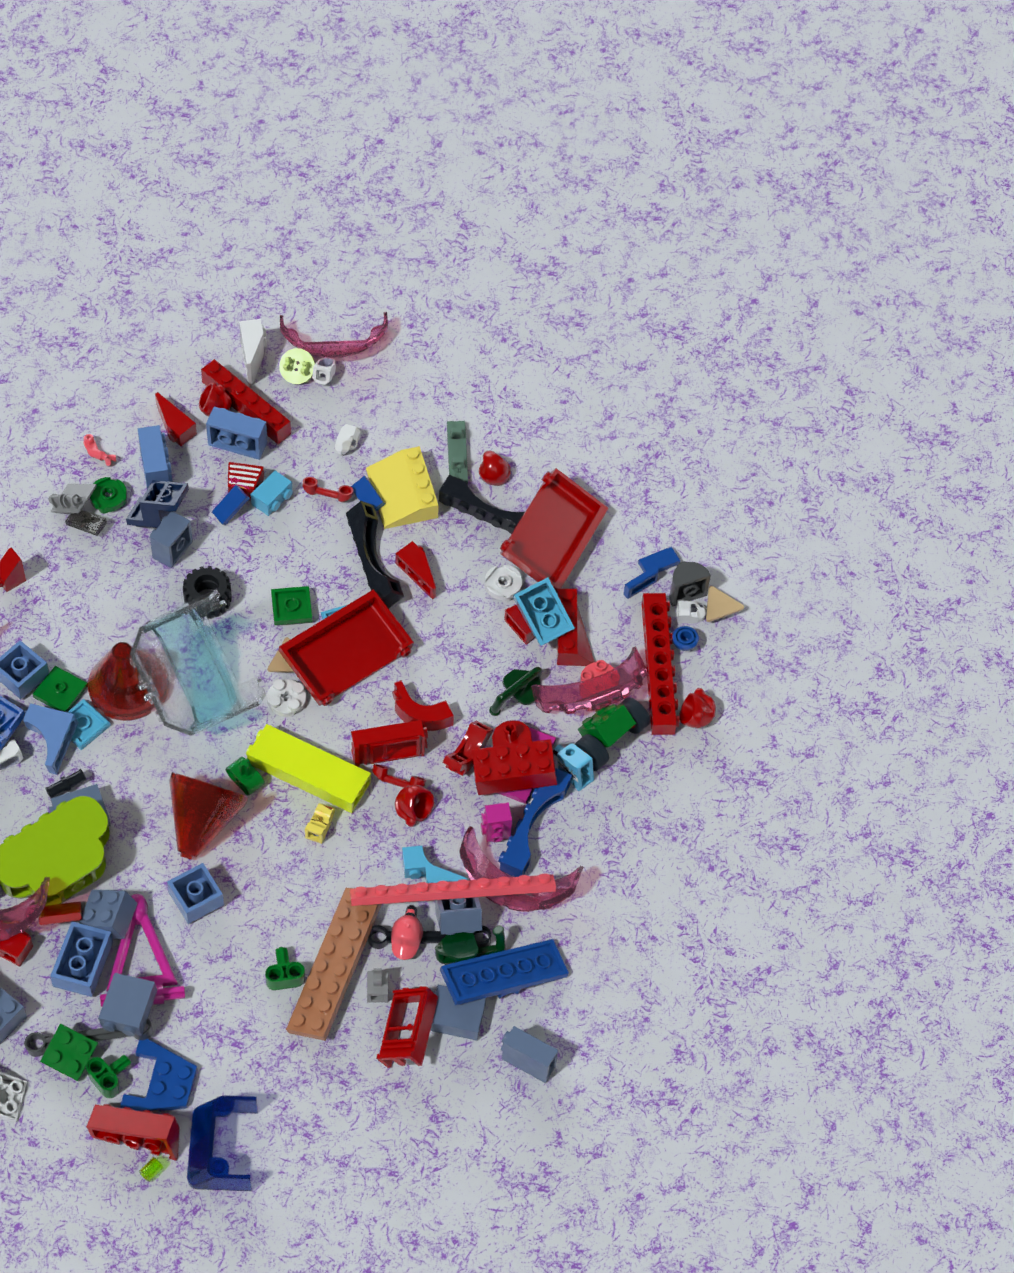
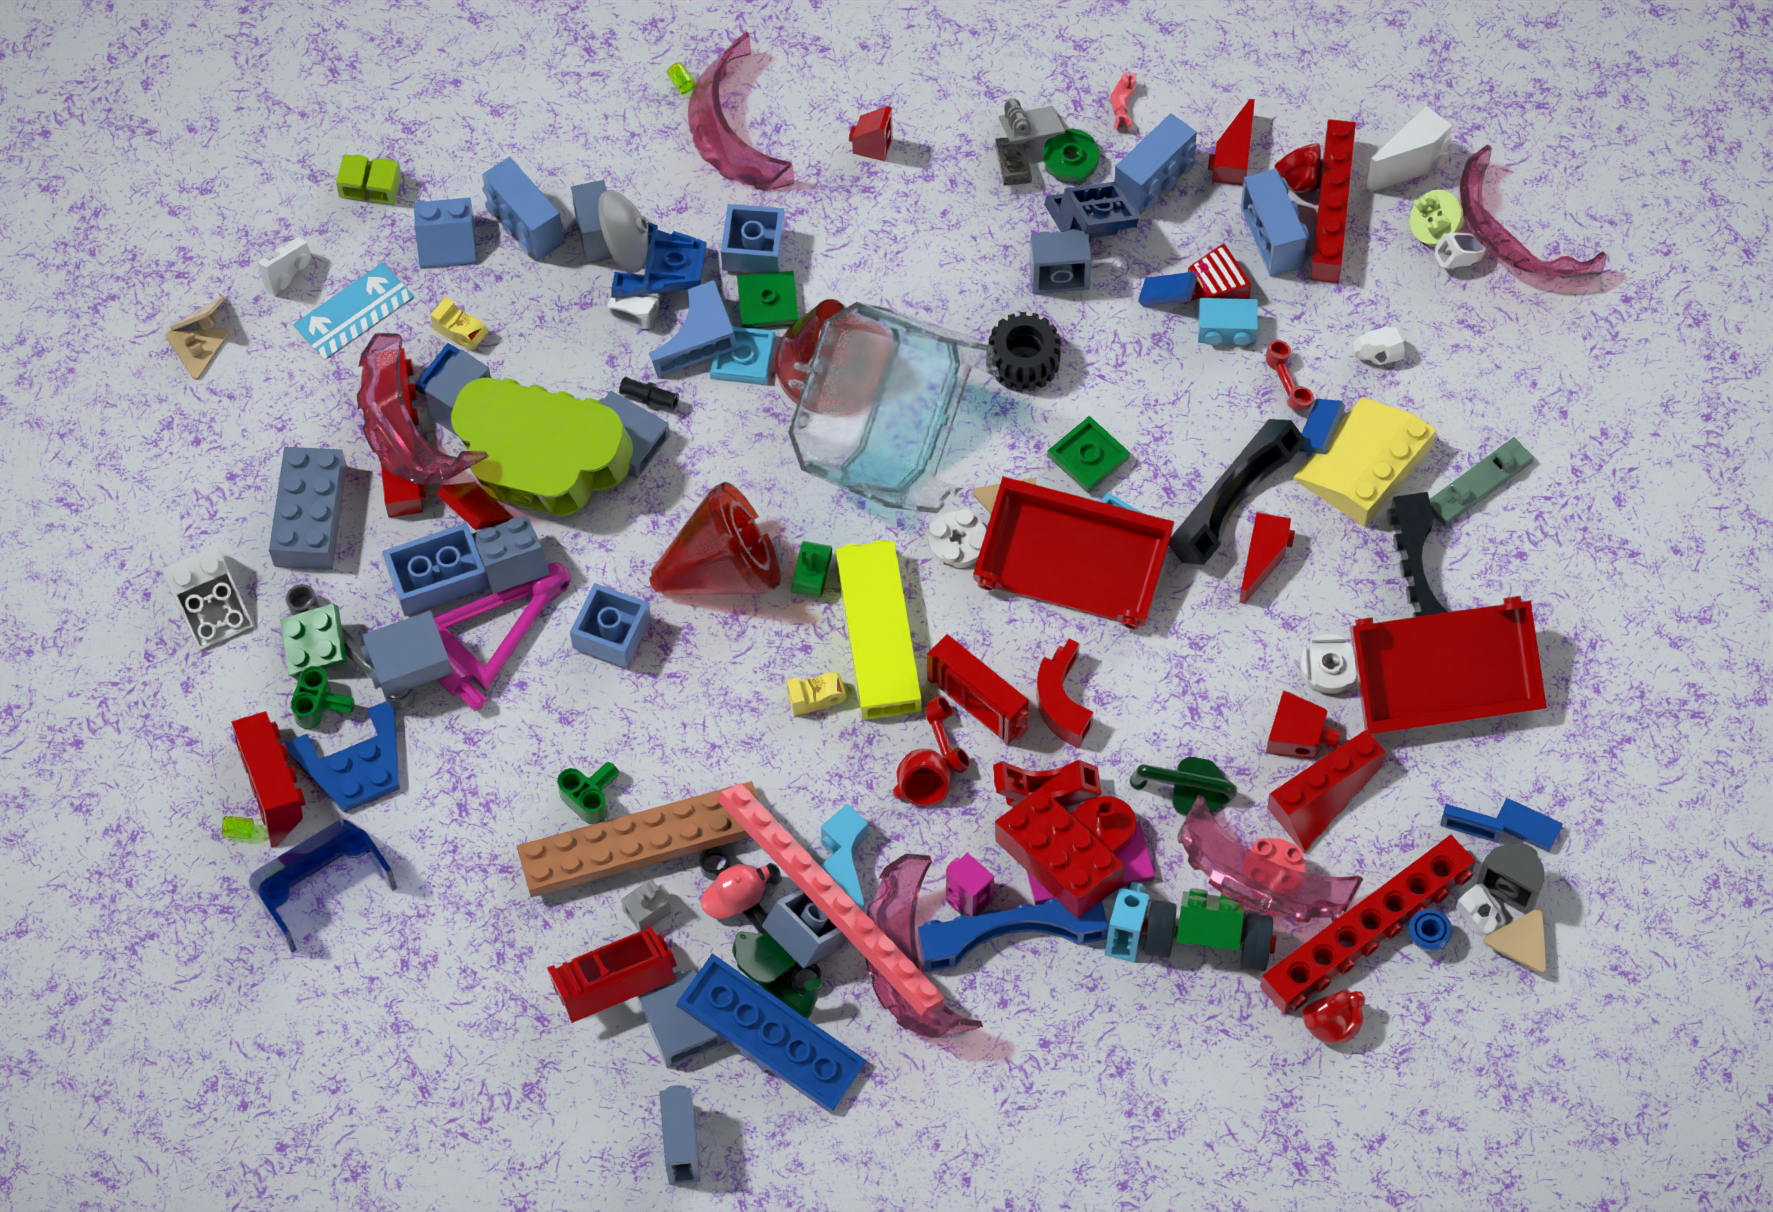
camera: 60 degrees right, 5 degrees up
(494, 469) = (1490, 538): red piece -> none
(543, 611) = (1309, 733): medium azure slope -> none

